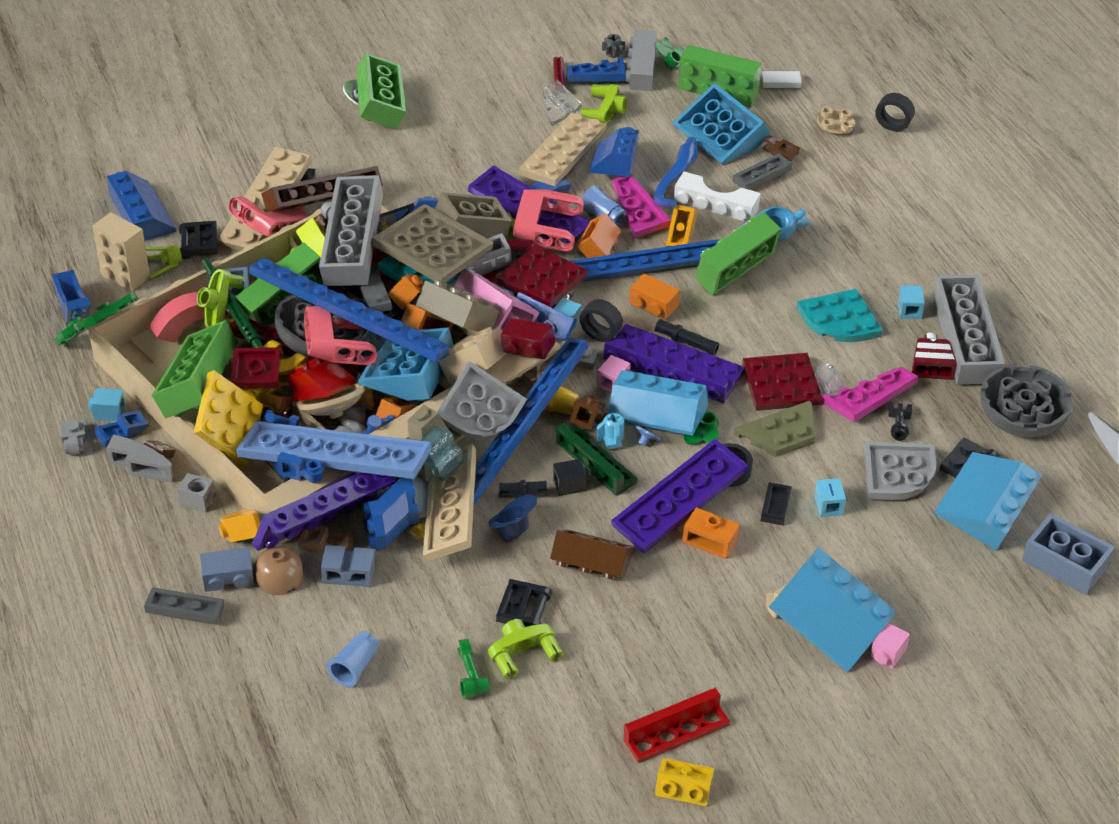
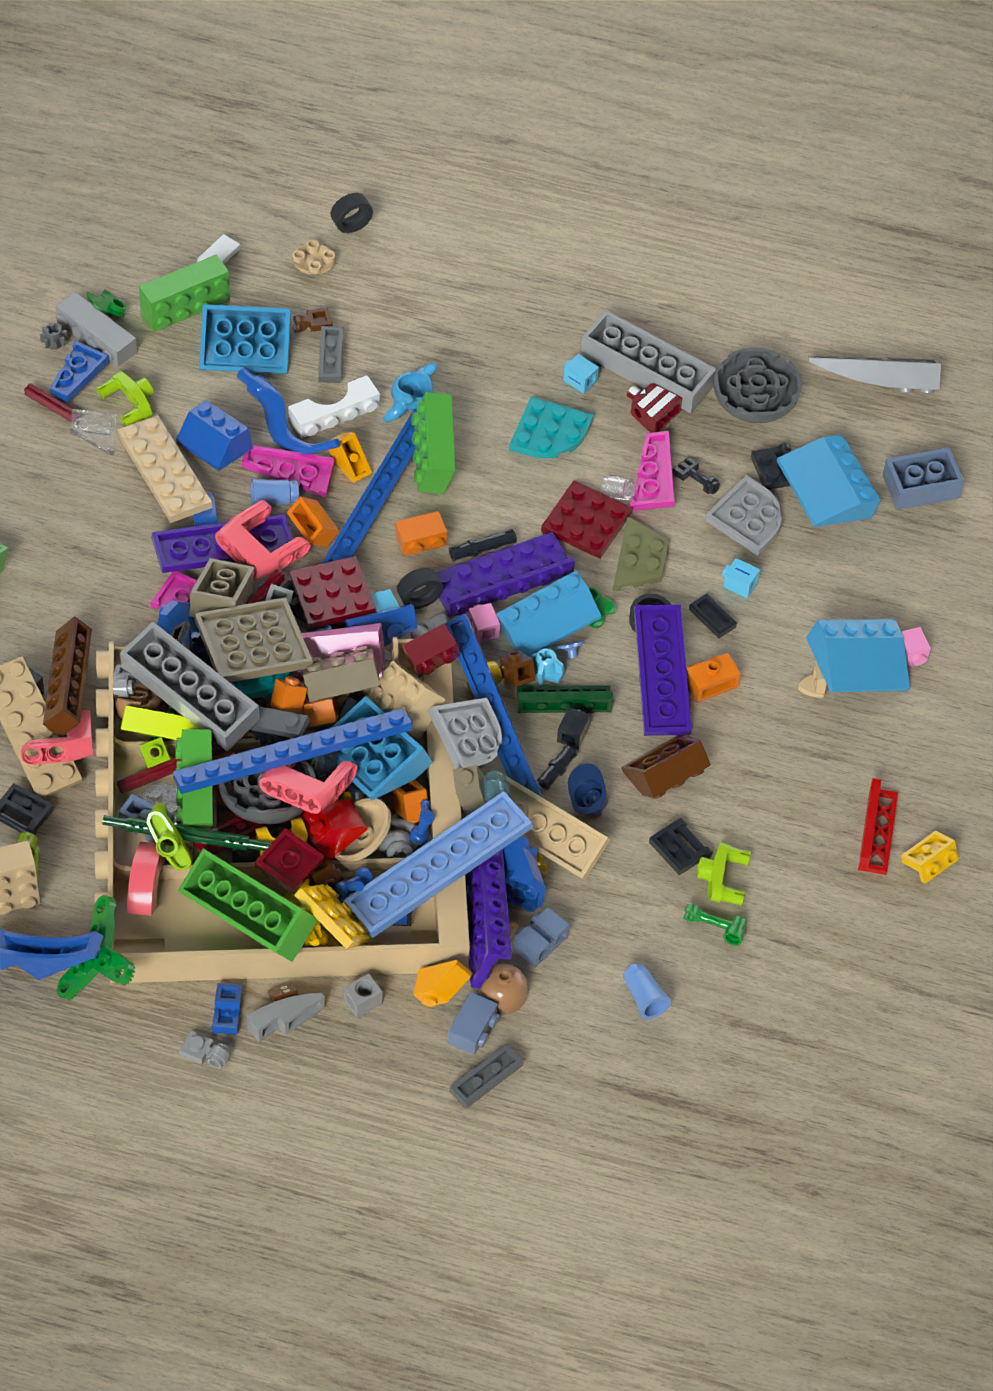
camera: 55 degrees left, 10 degrees up
(107, 404) = (191, 1002): medium azure brick -> none
(294, 467) = (437, 902): blue plate -> none

